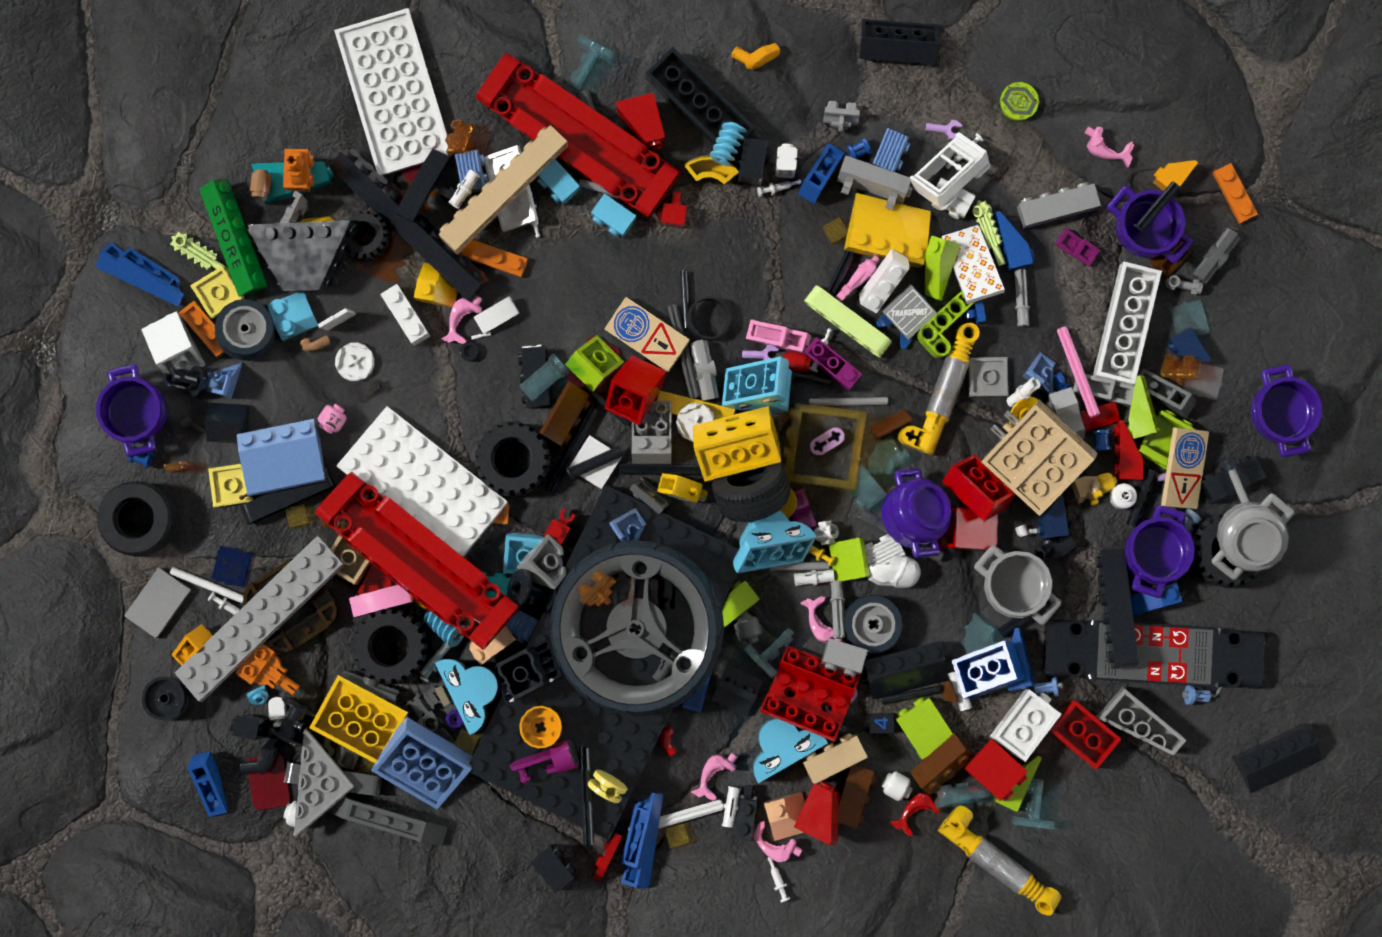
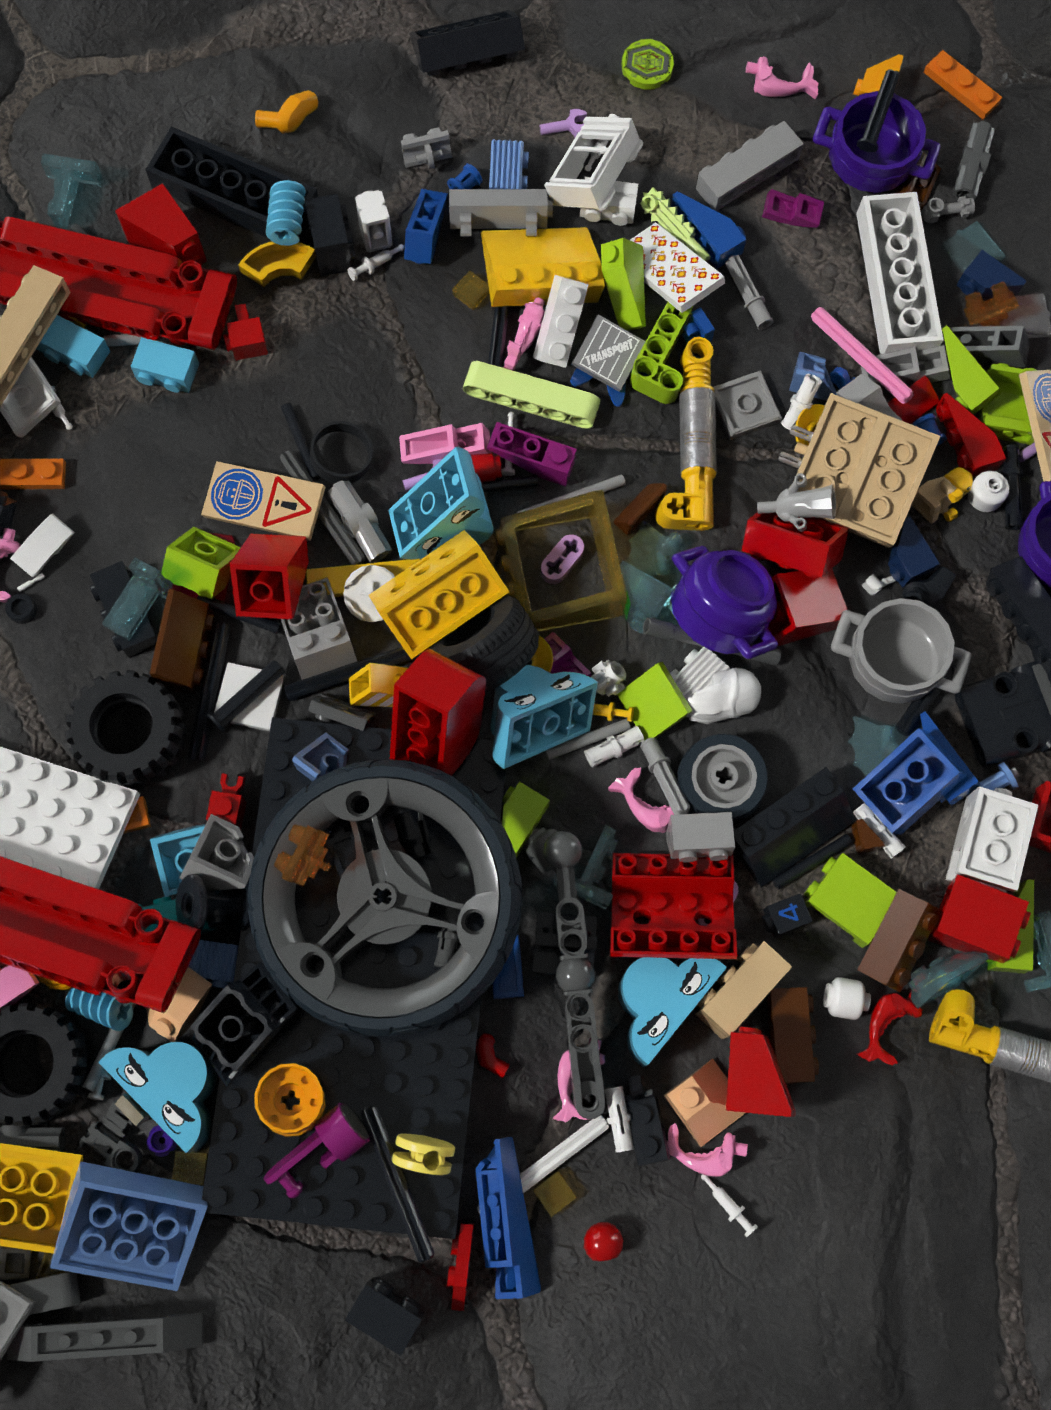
camera: 25 degrees left, 10 degrees down
(695, 873) = (603, 1241): none -> red piece
(706, 528) = (436, 712): none -> red brick
(735, 713) = (576, 975): none -> dark grey piece
(995, 471) = (804, 504): none -> light grey piece

